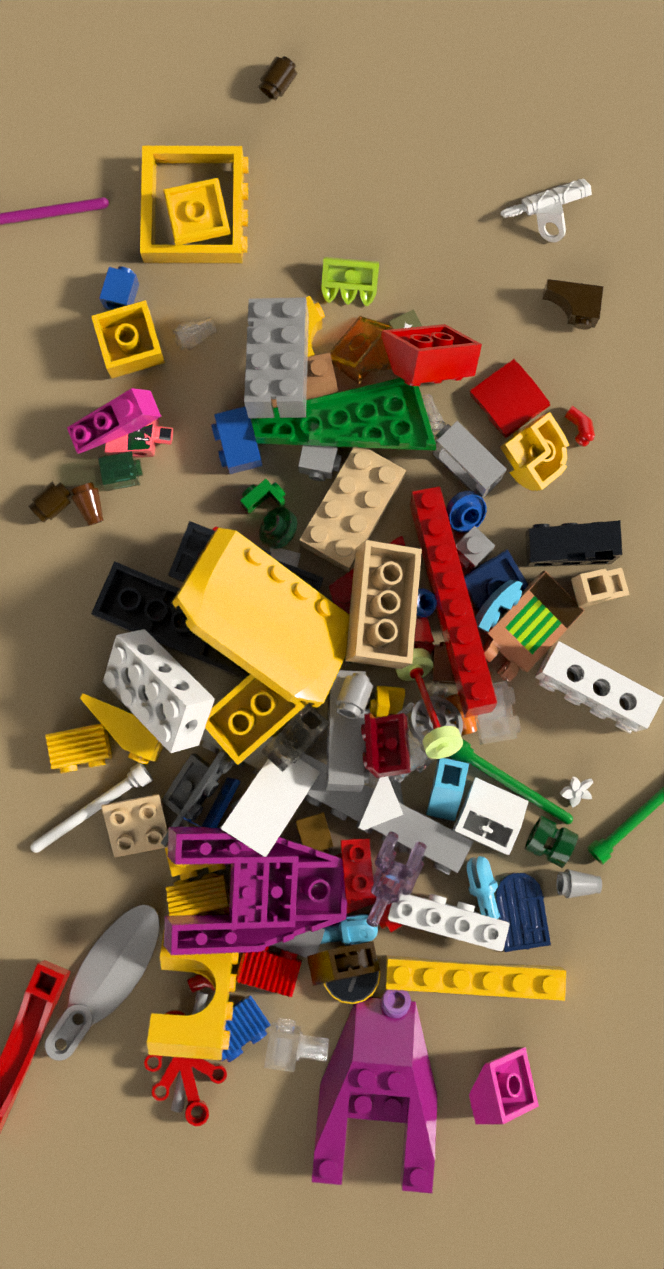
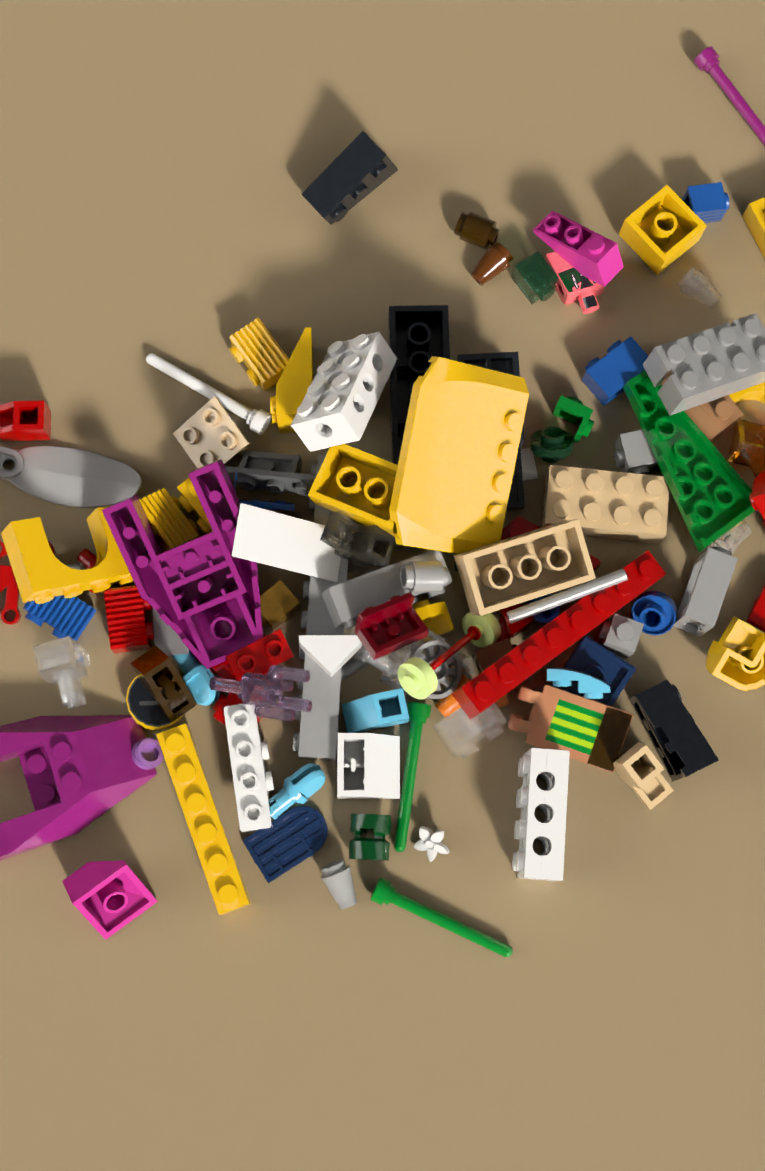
camera: 60 degrees right, 5 degrees down
(424, 580) = (567, 596): none -> light grey bar

